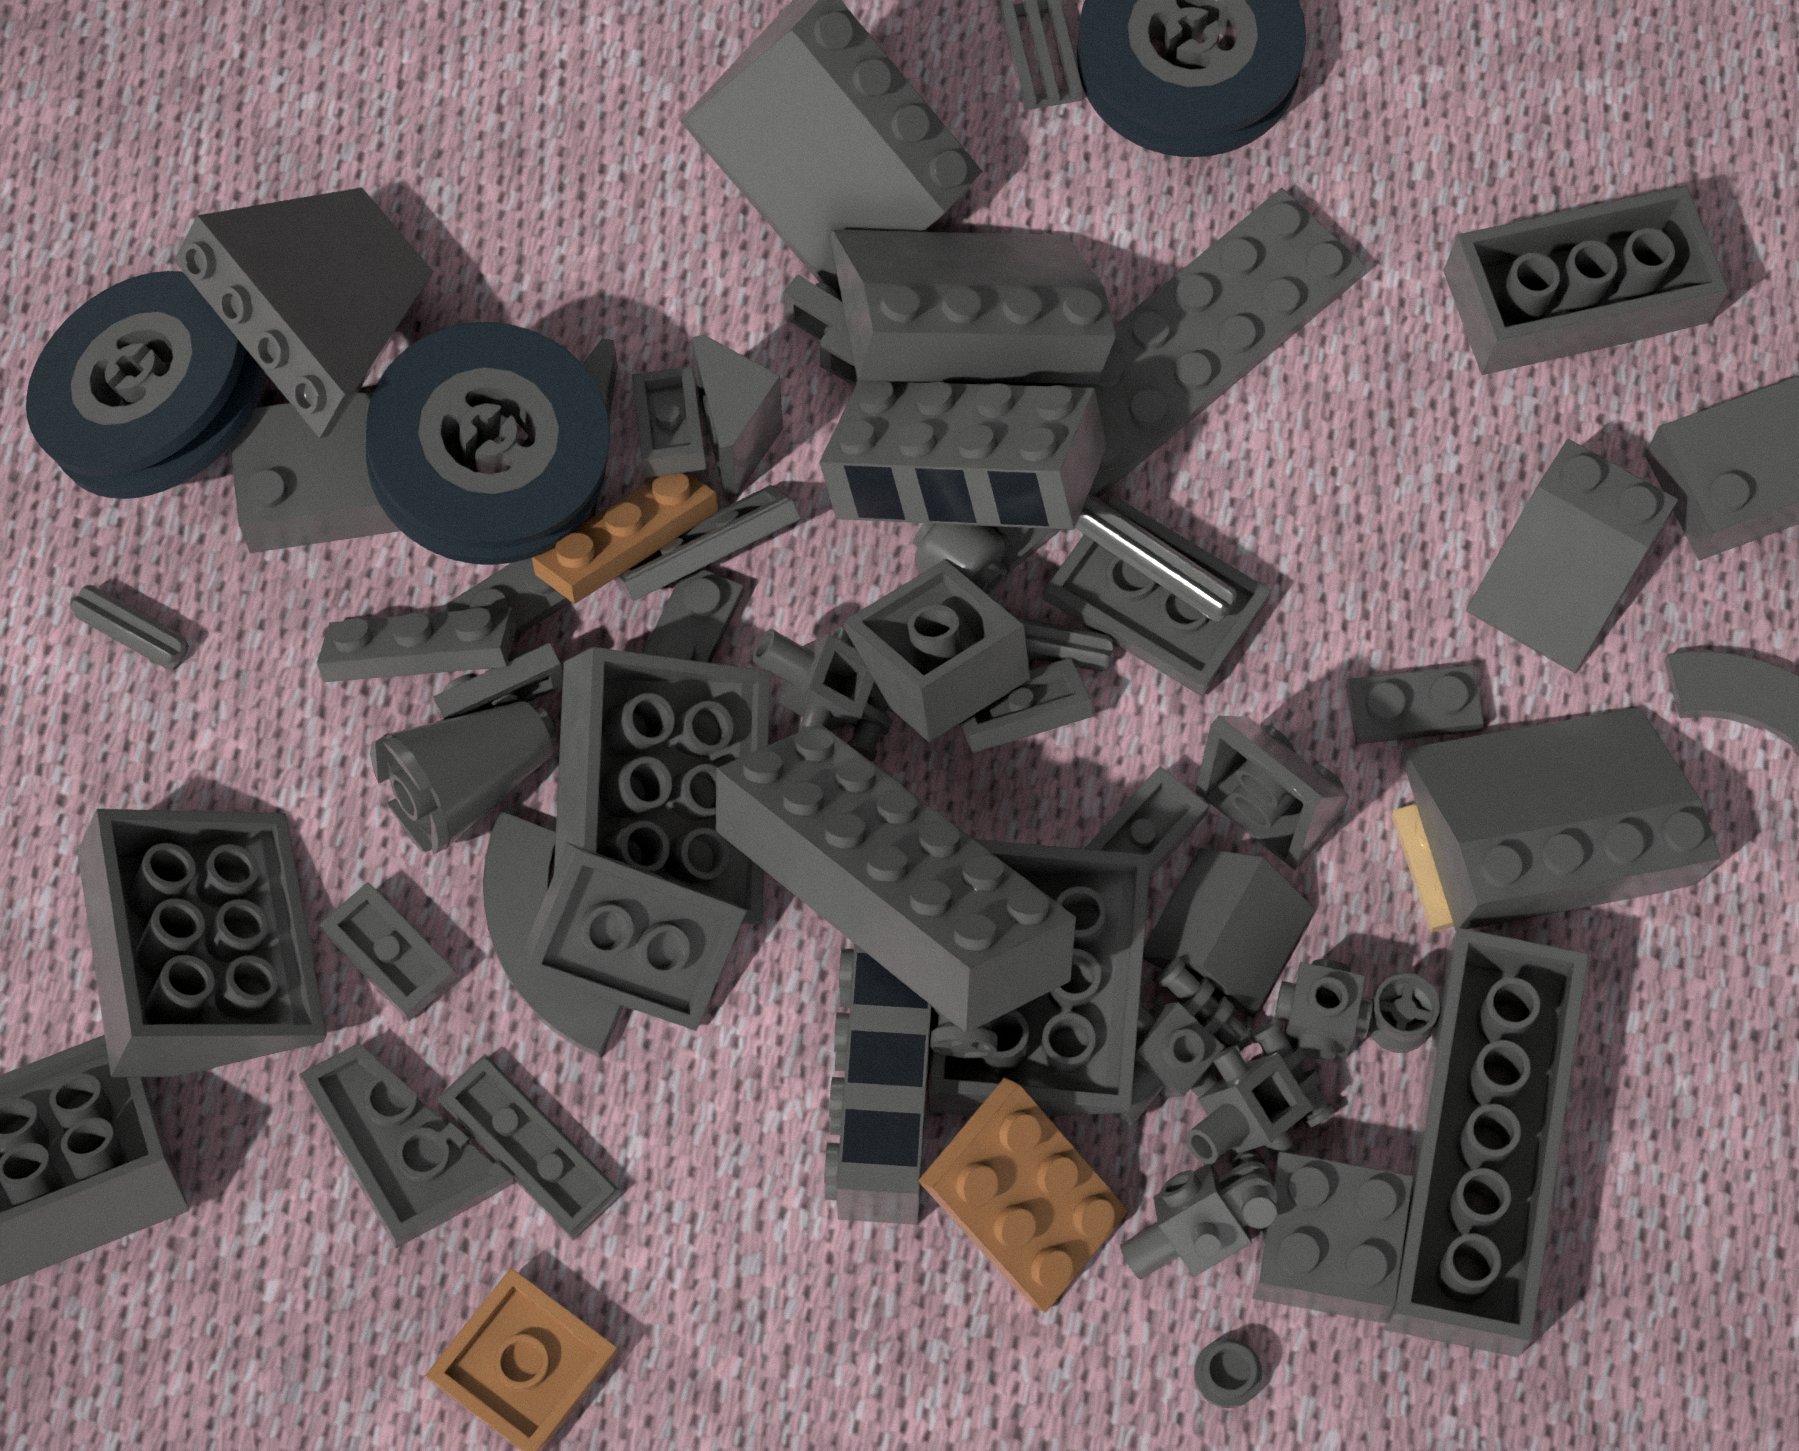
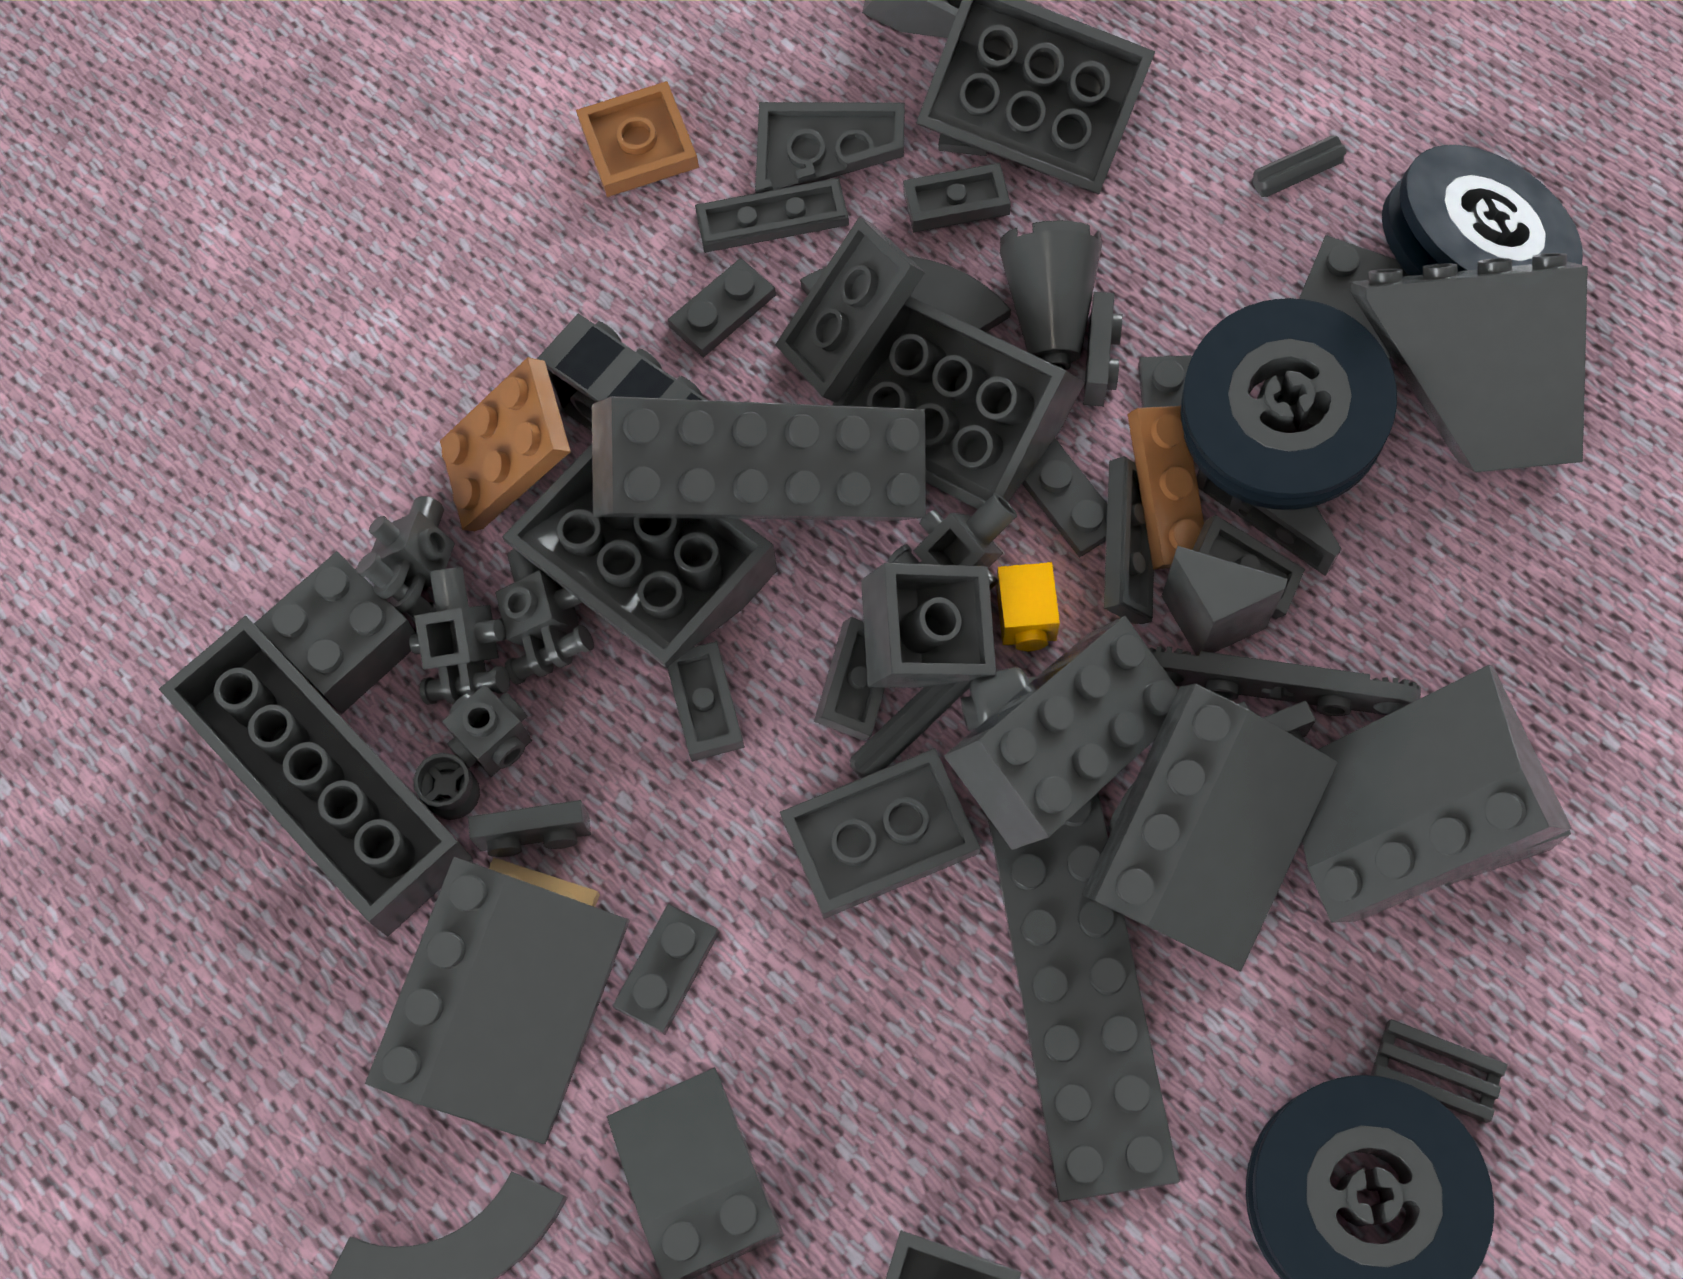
camera: 130 degrees right, 0 degrees up
(417, 644) = (1165, 313): dark grey plate -> none
(683, 1121) = (721, 307): none -> dark grey plate
(750, 293) = (1331, 690): none -> dark grey piece
(837, 589) = (1027, 605): none -> yellow brick
(1156, 559) = (902, 835): dark grey axle -> none
(1227, 1373) = (317, 523): dark grey plate -> none
(1231, 925) = (596, 714): dark grey slope -> none
(1269, 788) = (659, 790): dark grey slope -> none
(1367, 888) = (552, 824): none -> dark grey plate

